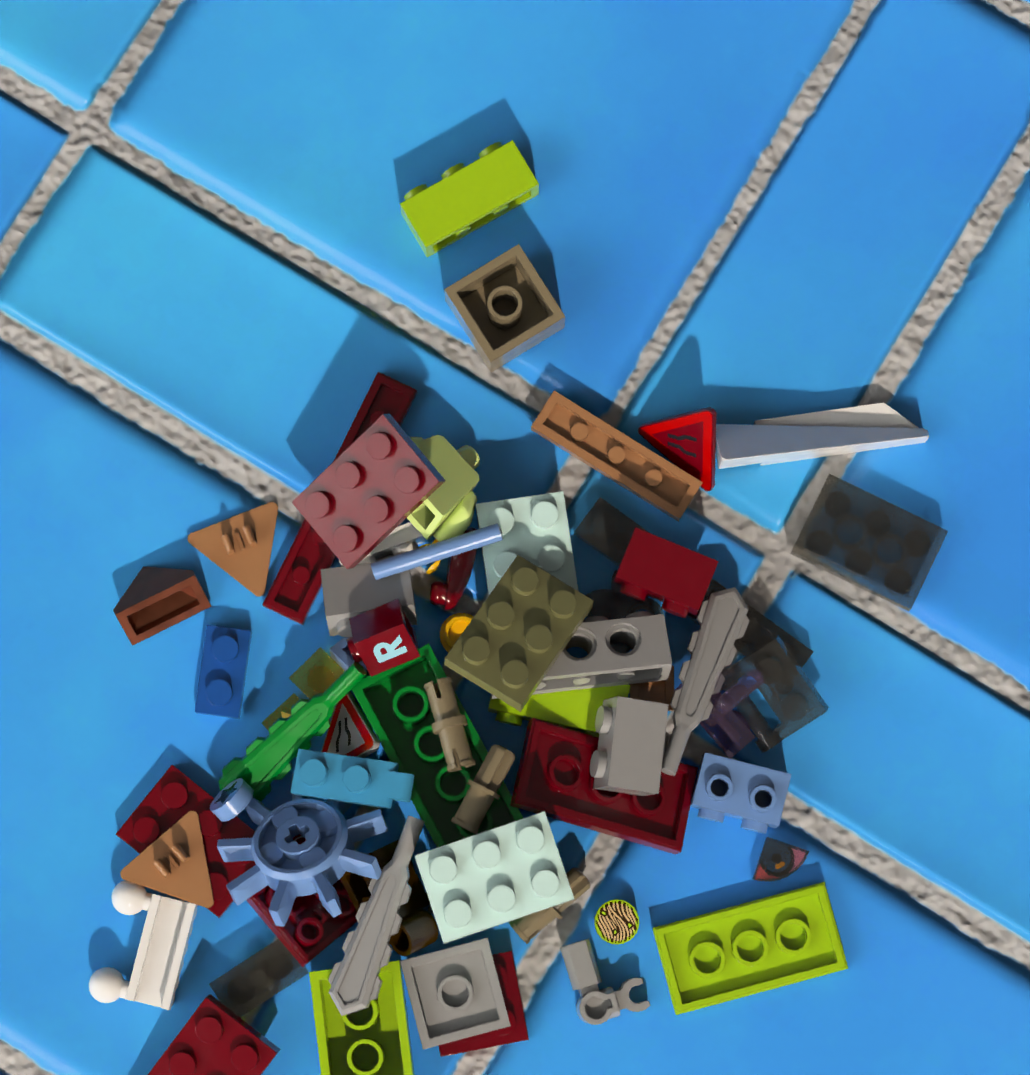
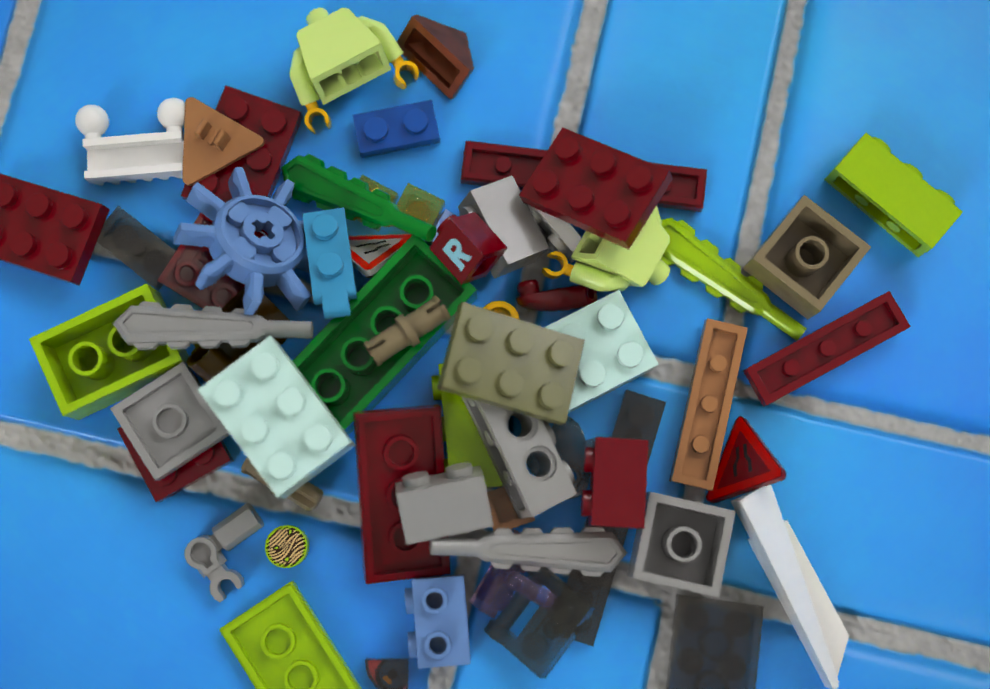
camera: 70 degrees right, 0 degrees up
(130, 702) = (340, 55): none -> yellowish green torso
(232, 800) = (282, 168): medium blue tile -> none
(241, 545) = (512, 108): medium nougat piece -> none
(437, 551) = (562, 268): medium blue bar -> none
(484, 788) = (358, 382): dark tan axle -> none
(493, 396) = (722, 277): none -> lime sword
(600, 321) = (826, 348): none -> dark red plate
(745, 531) = (682, 544): none -> light grey brick

